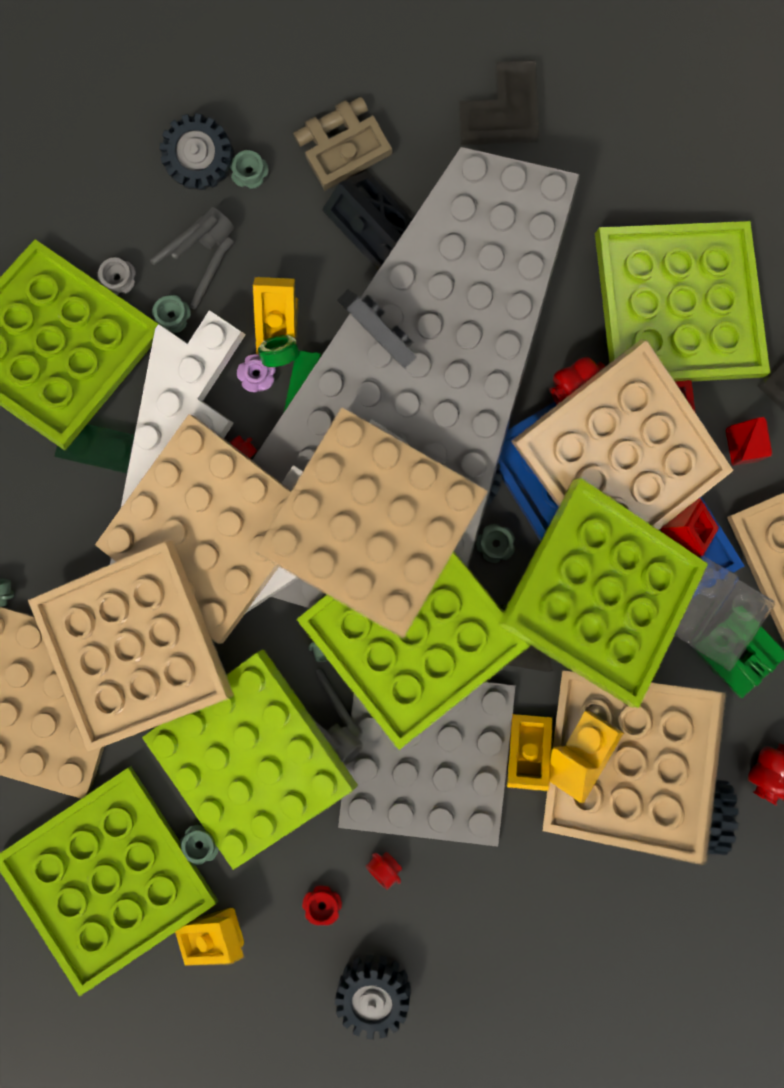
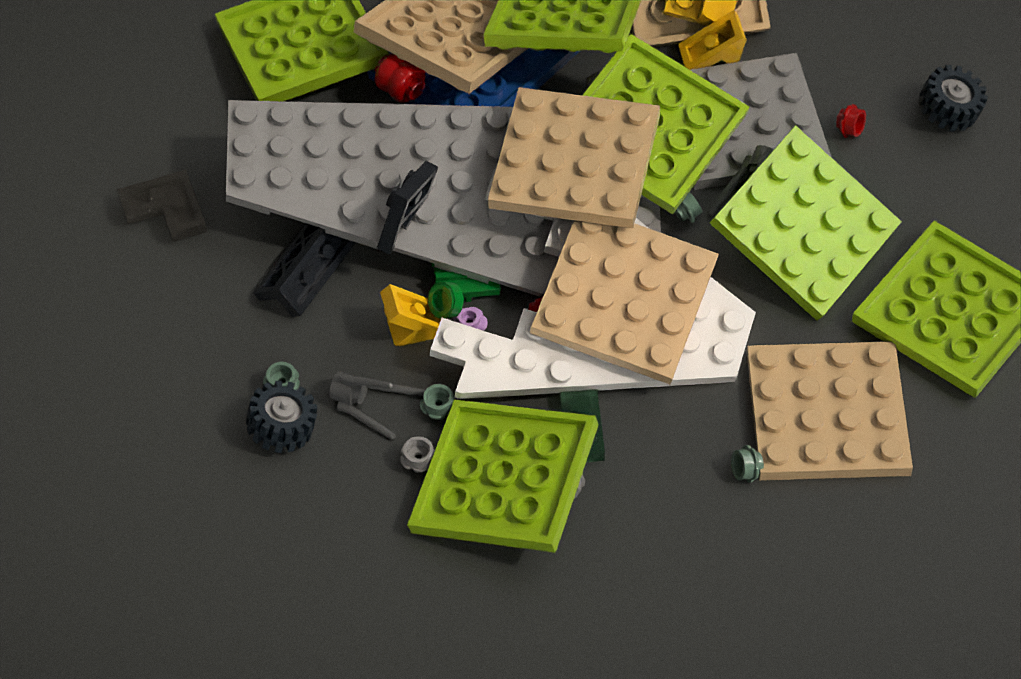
camera: 110 degrees left, 30 degrees down
(130, 646) = (749, 315): tan plate -> none
(190, 850) = (892, 244): sand green plate -> none
(211, 939) = (965, 211): yellow slope -> none
(322, 916) = (897, 149): red plate -> none
(347, 152) = (241, 306): dark tan plate -> none

